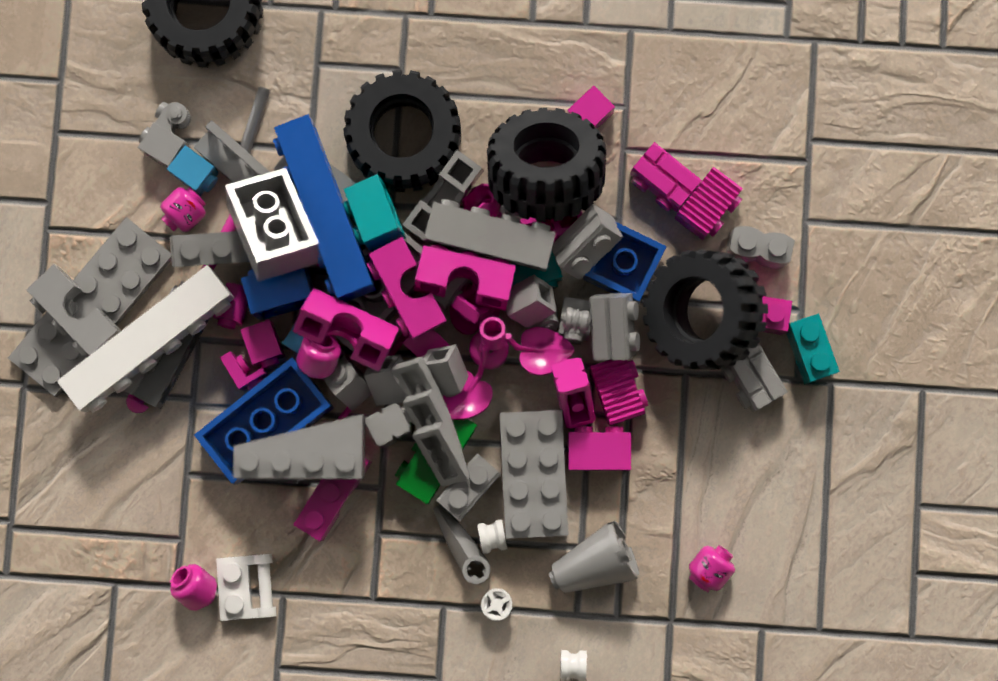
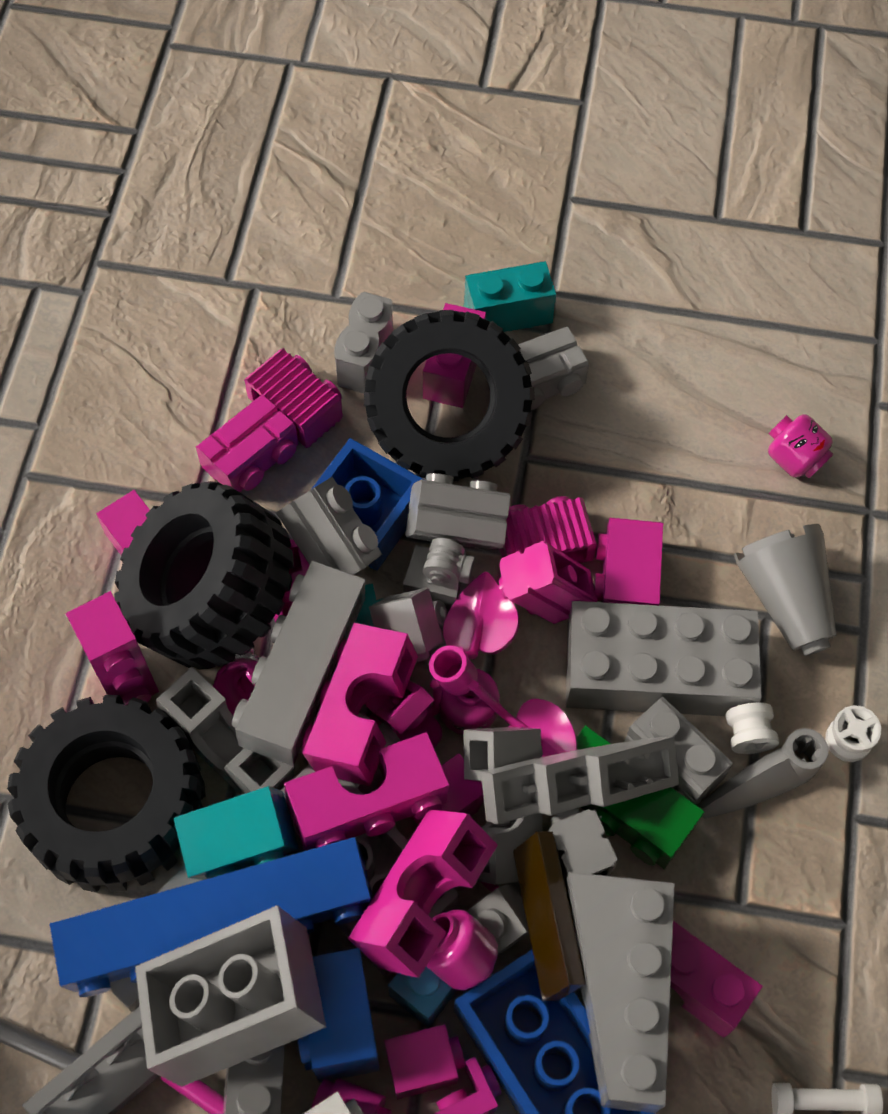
camera: 90 degrees left, 20 degrees down
(342, 406) = (548, 917): none -> dark brown tile
(484, 115) = (112, 649): none -> dark pink arch

